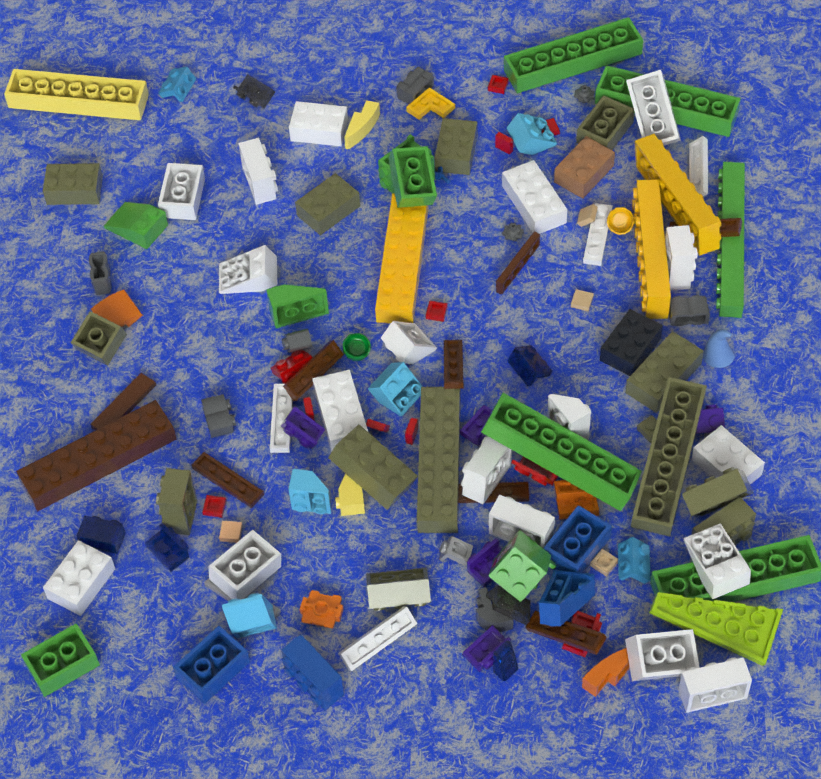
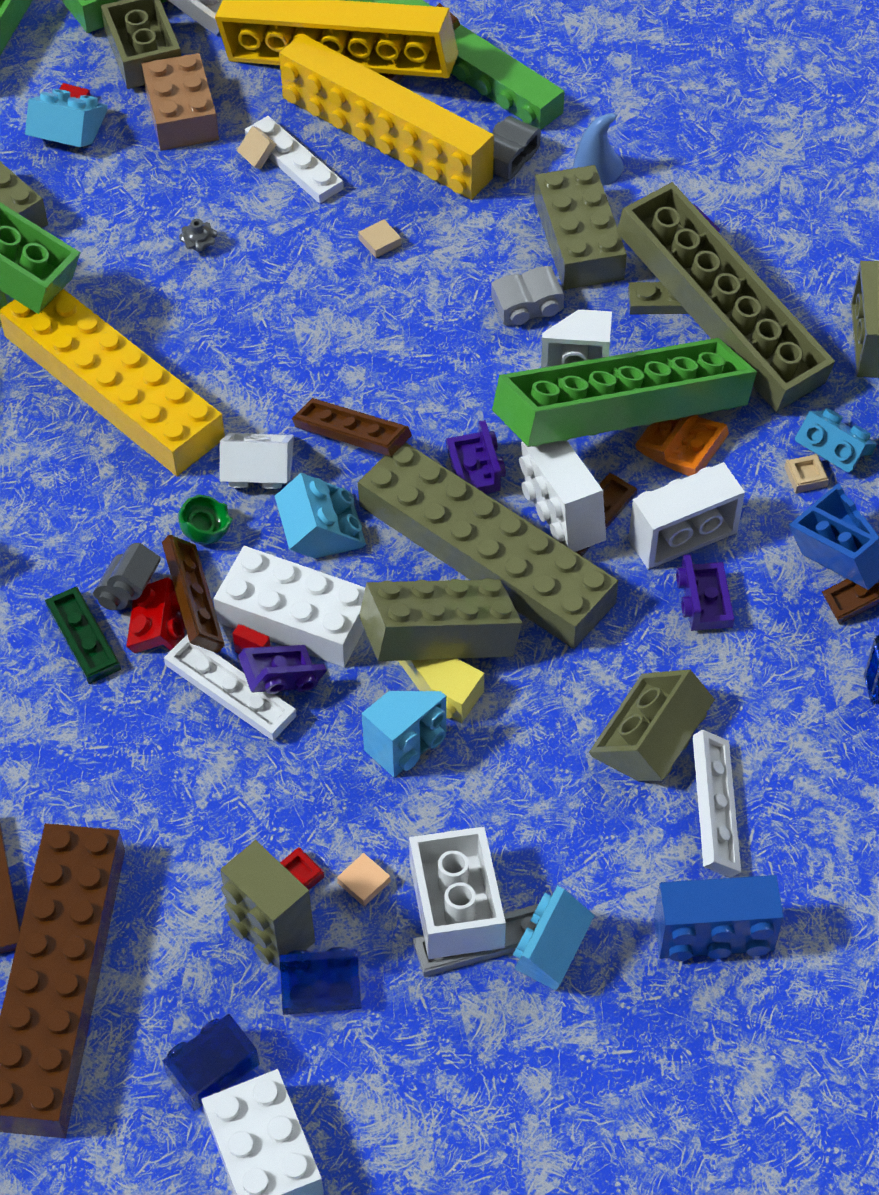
camera: 55 degrees left, 0 degrees up
(211, 664) = (589, 1049): blue brick -> none
(217, 415) = (145, 765): dark grey brick -> none
(227, 479) = (266, 825): reddish brown tile -> none
(264, 348) = (82, 635): none -> dark green tile
(296, 303) = (57, 540): bright green slope -> none
(321, 609) = (609, 842): orange piece -> none
(377, 425) = (366, 575): red tile -> none
(411, 431) = (408, 546): red tile -> none
(436, 311) = (233, 397): red tile -> none
(455, 550) = (648, 619): light grey bracket -> none
(481, 651) = (842, 683): dark purple bracket -> none
(487, 617) = (789, 647): dark grey brick -> none
(504, 143) = (45, 153): red tile -> none
(508, 605) = (802, 603): clear smoke bracket -> none
(517, 263) = (255, 261): reddish brown tile -> none
(520, 566) = (765, 549): bright green container -> none
(528, 364) = (426, 354): clear blue bracket -> none
(534, 197) = (170, 178): white brick -> none
(538, 473) = (608, 446): red bracket -> none
(578, 541) = (768, 473): blue brick -> none
(584, 94) = (63, 31): dark grey plant -> none
(601, 380) = (527, 296): none -> light grey brick
(620, 221) = (307, 119): yellow hair -> none
(631, 342) = (502, 229): black brick -> none
(680, 257) = (438, 77): white brick -> none
(717, 492) = (830, 279): olive brick -> none
(723, 451) = (780, 249): white brick -> none

